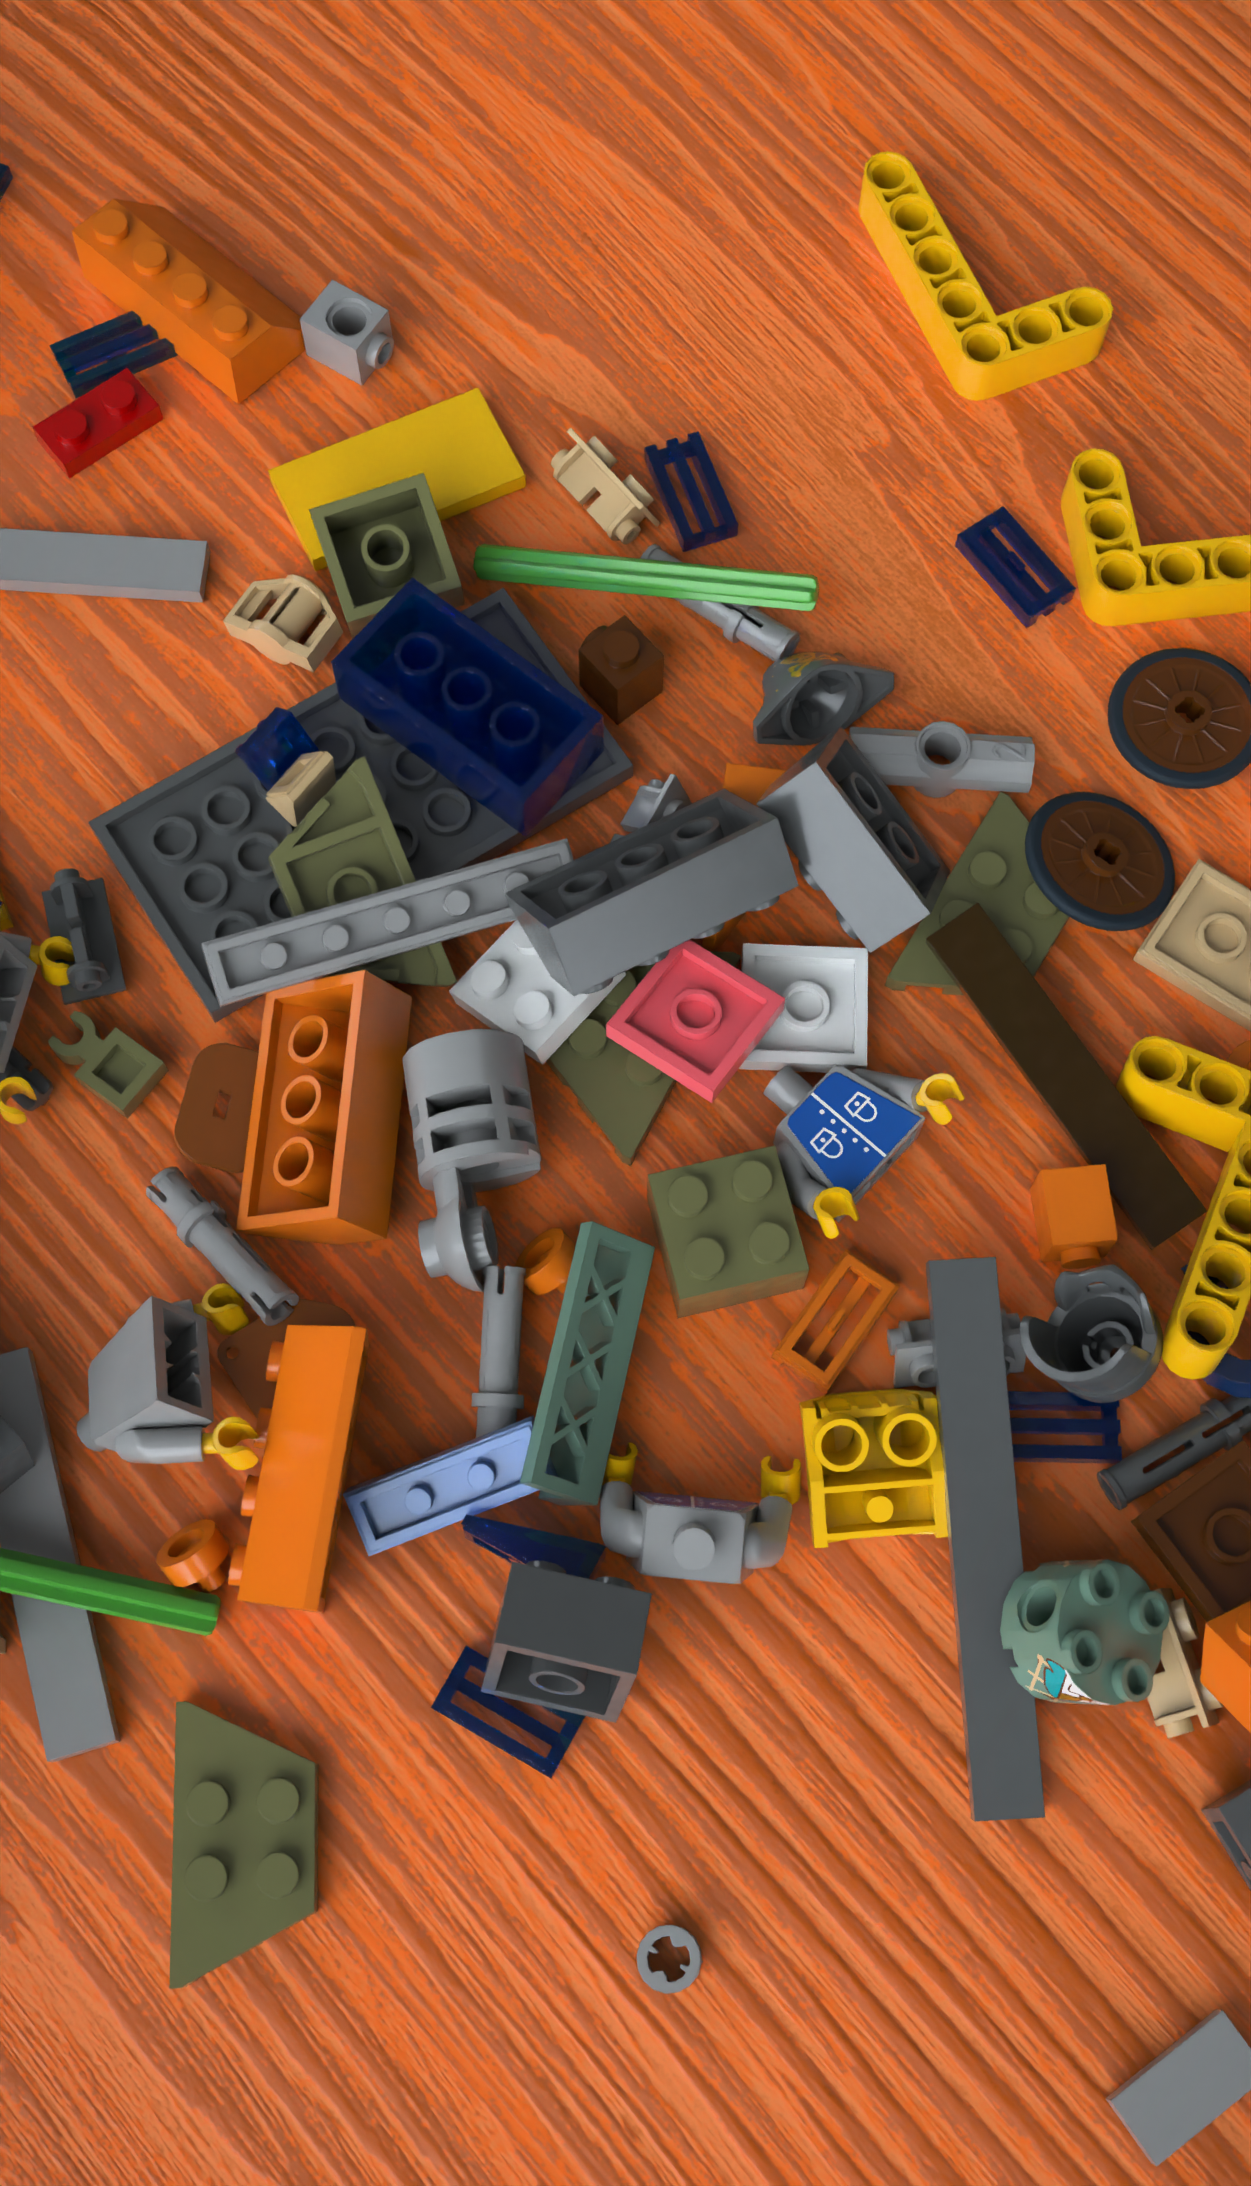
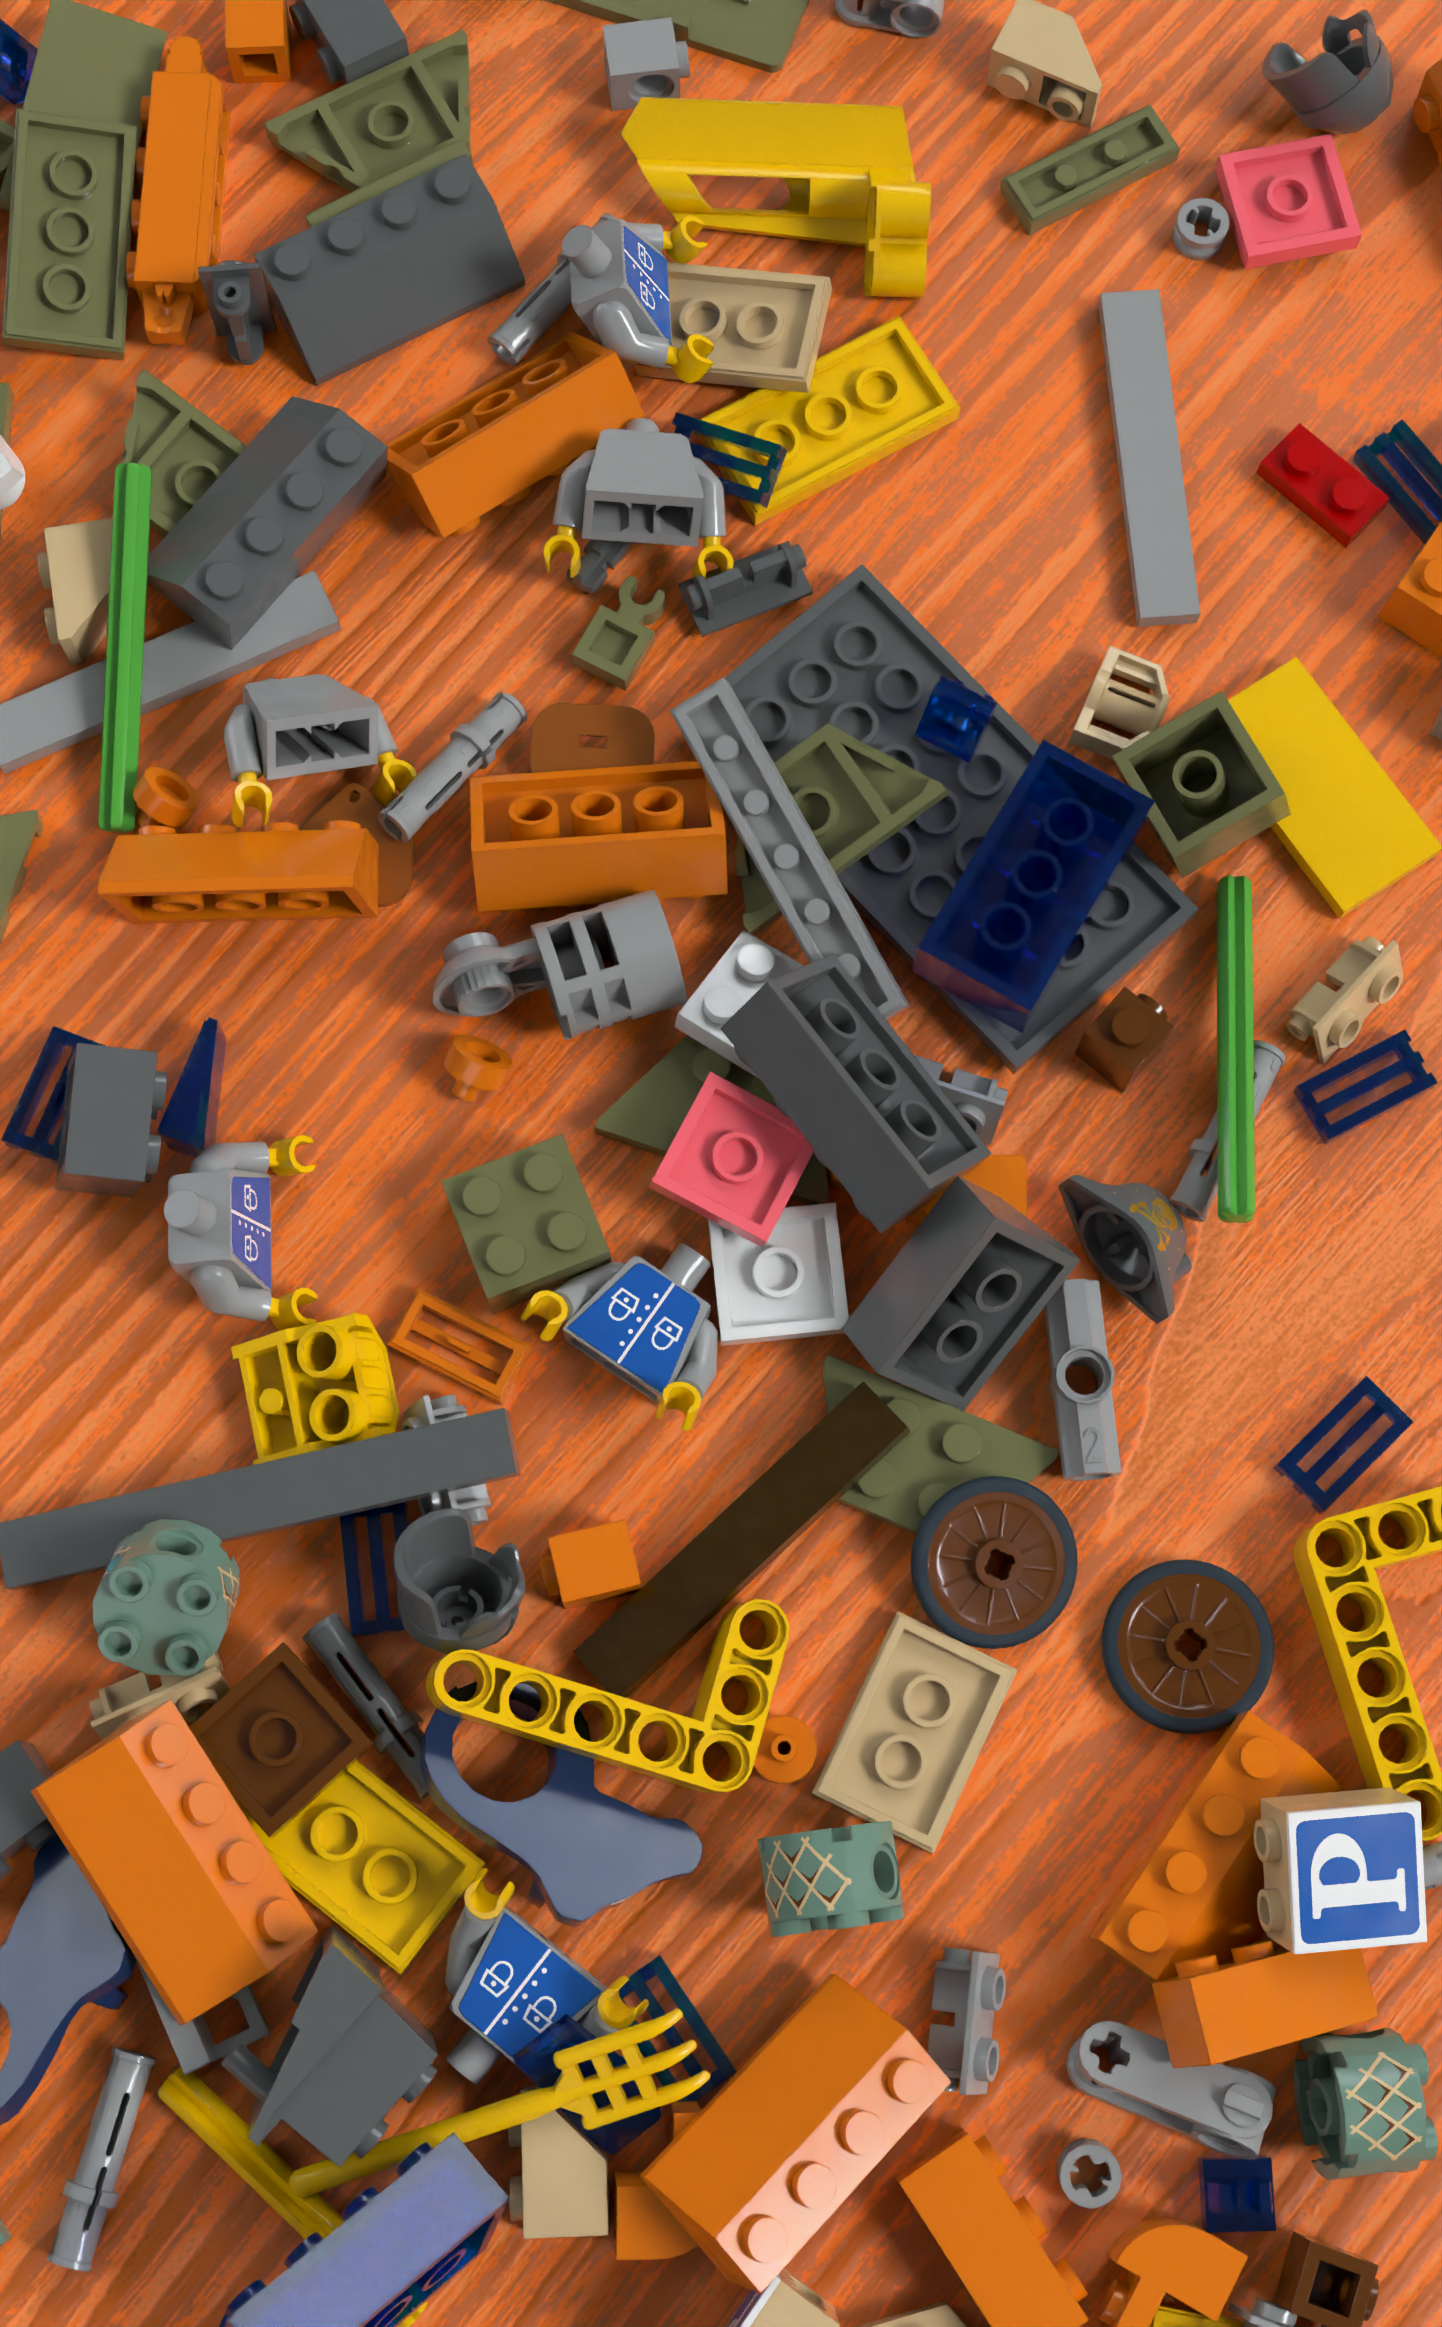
camera: 80 degrees right, 5 degrees up
(303, 786) = (921, 747): tan slope -> none
(442, 1488) = (249, 1008): medium blue tile -> none
(500, 1349) = (343, 1037): light grey pin -> none
(587, 1366) = (371, 1120): sand green fence -> none

